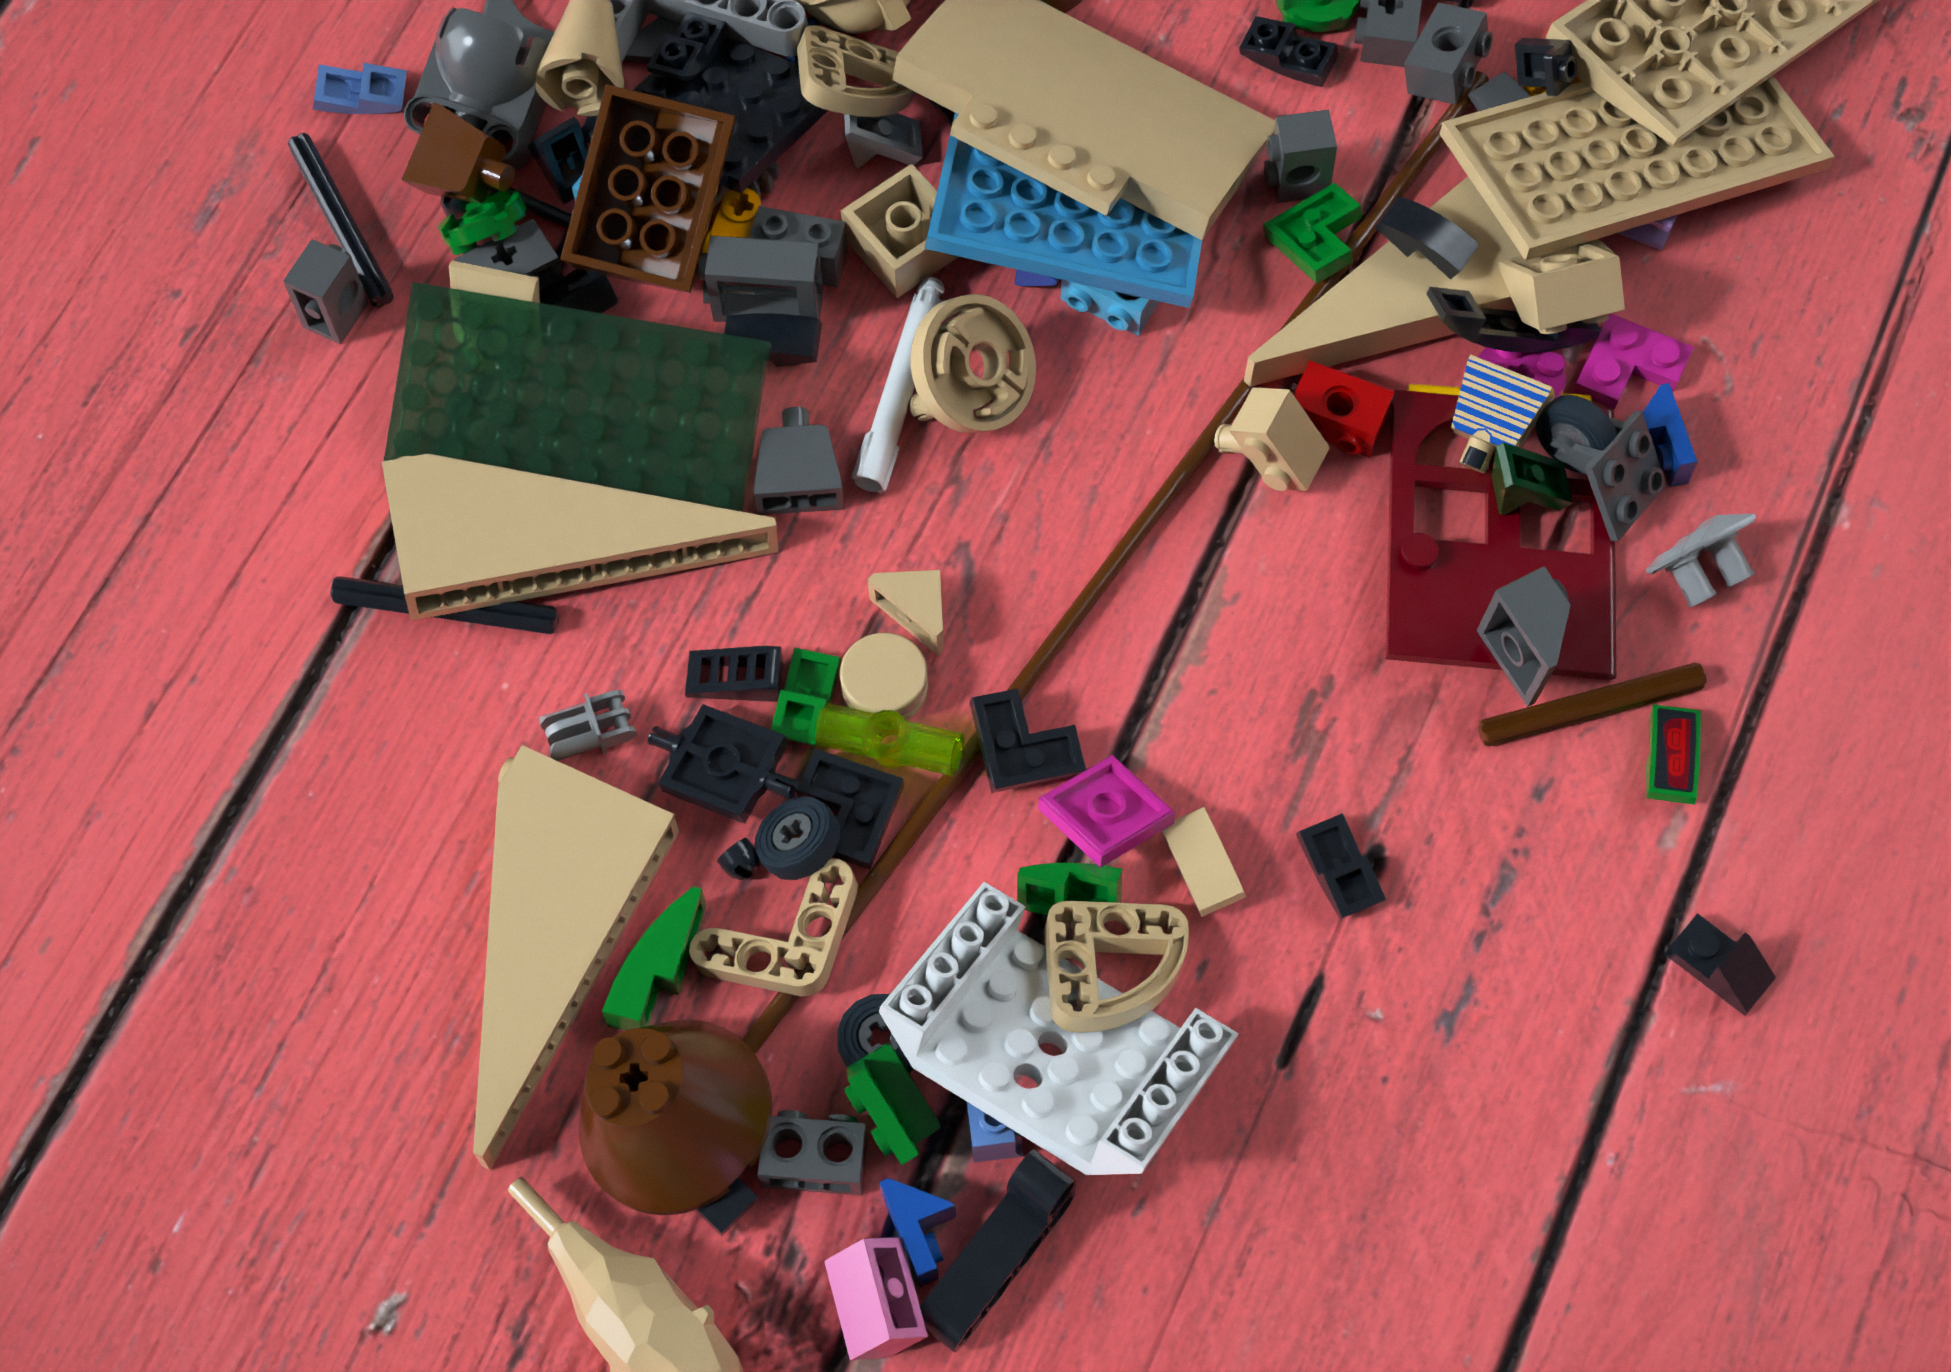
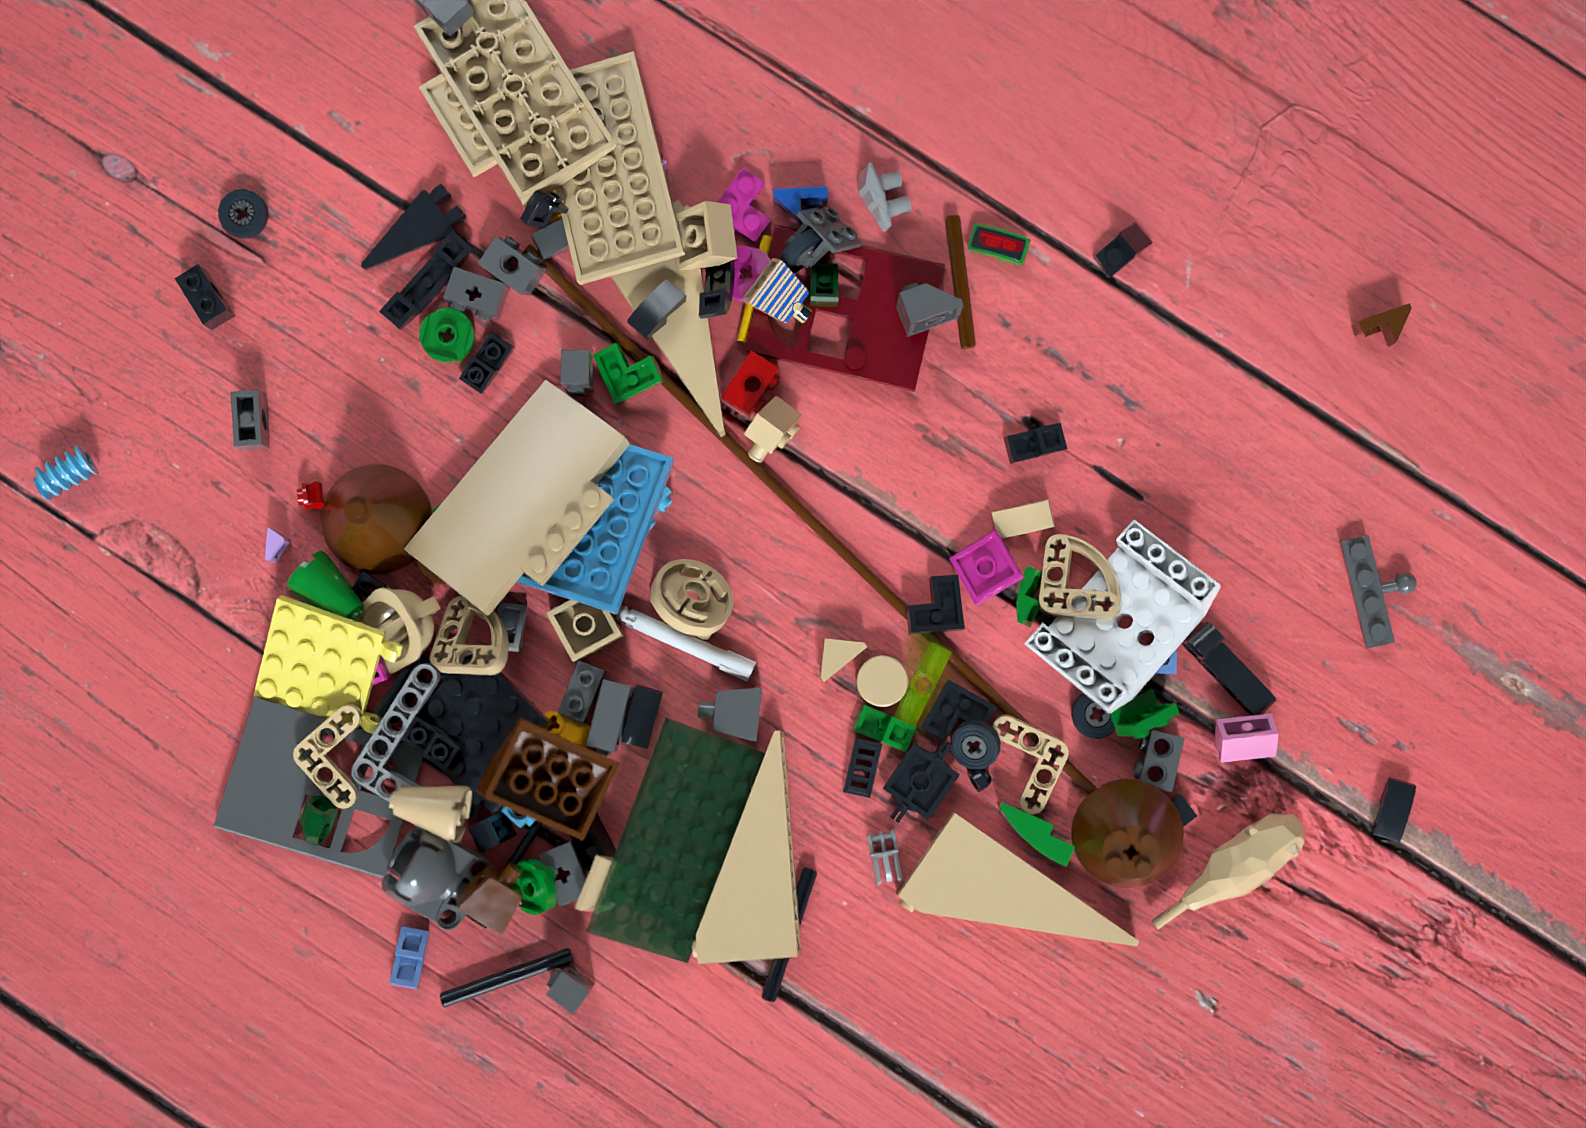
camera: 85 degrees left, 20 degrees up
(911, 1214) = (1200, 712): blue slope -> none

